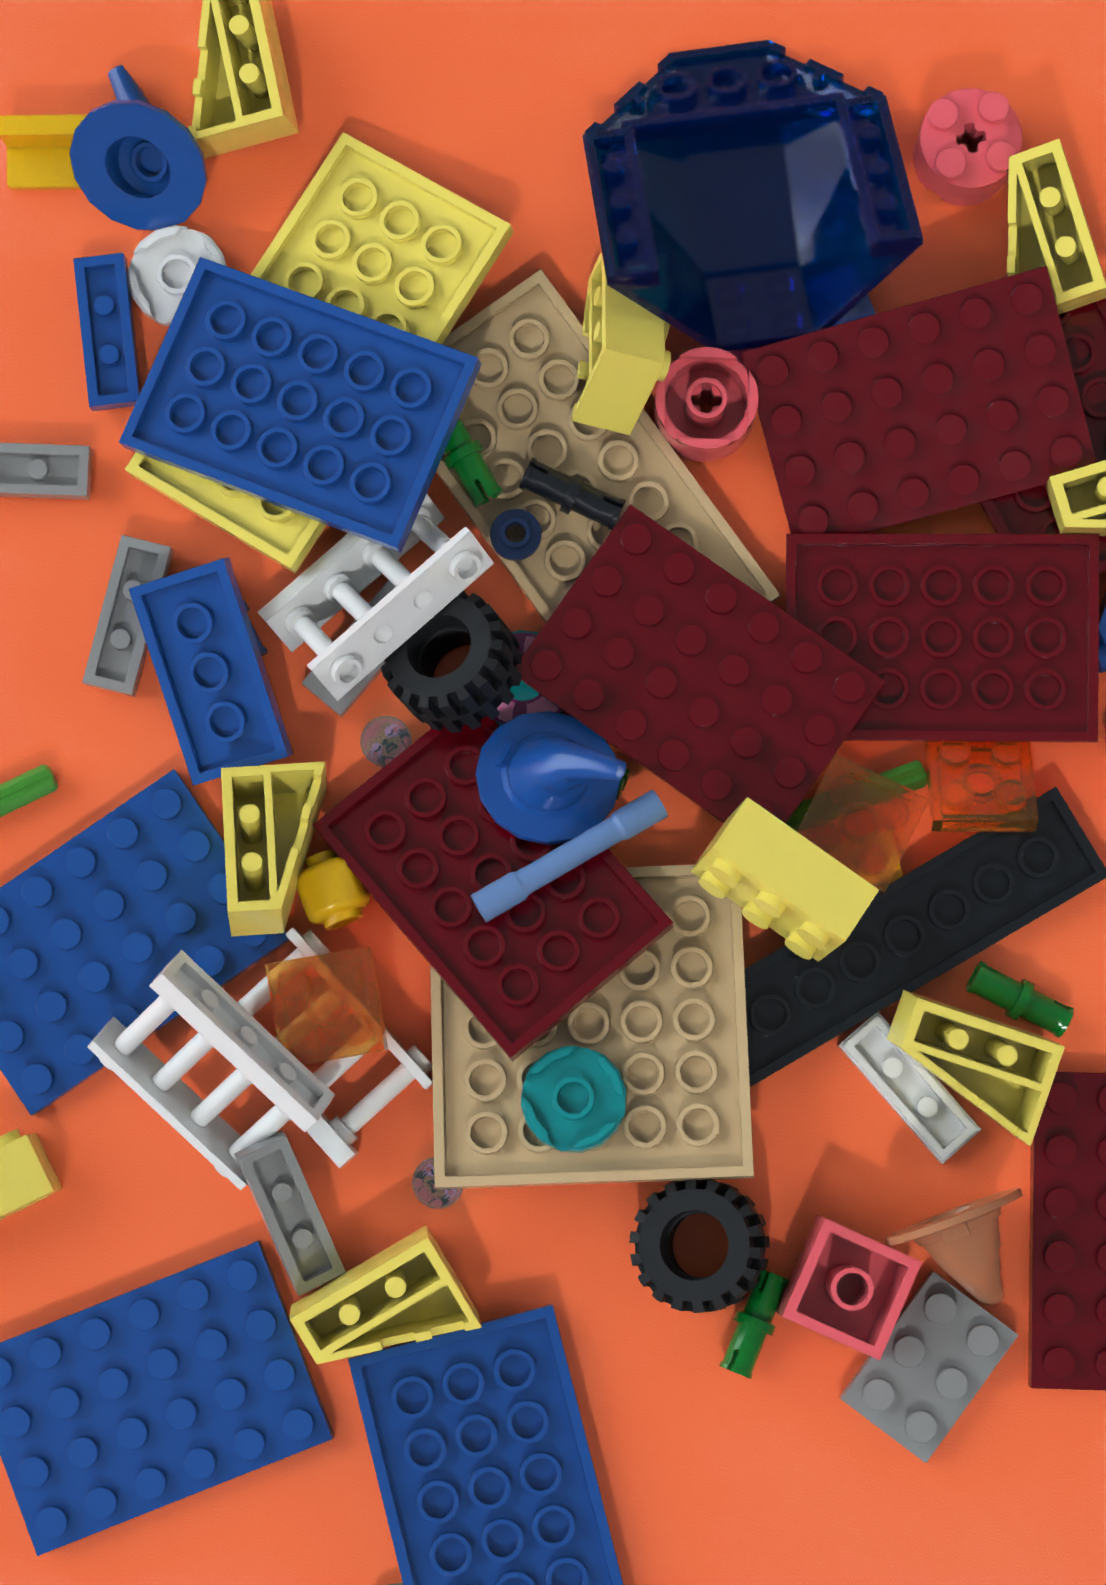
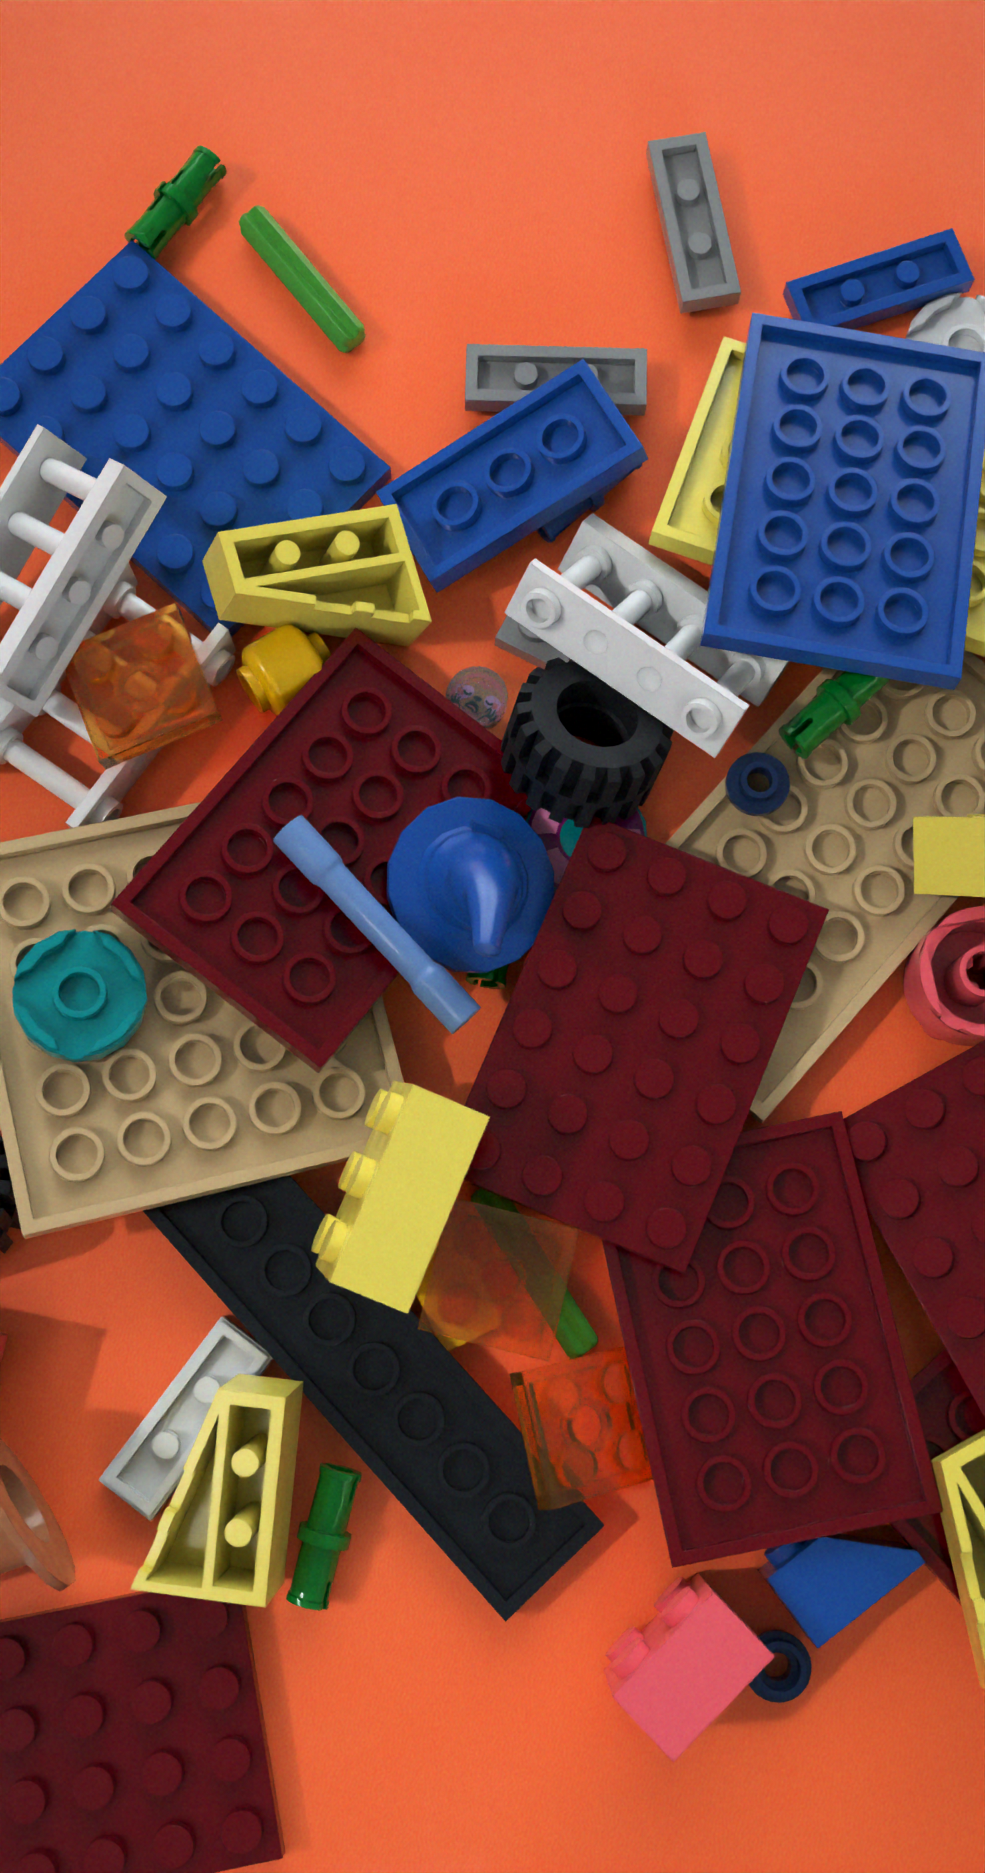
camera: 70 degrees right, 5 degrees down
(572, 493) = (824, 838): black pin -> none

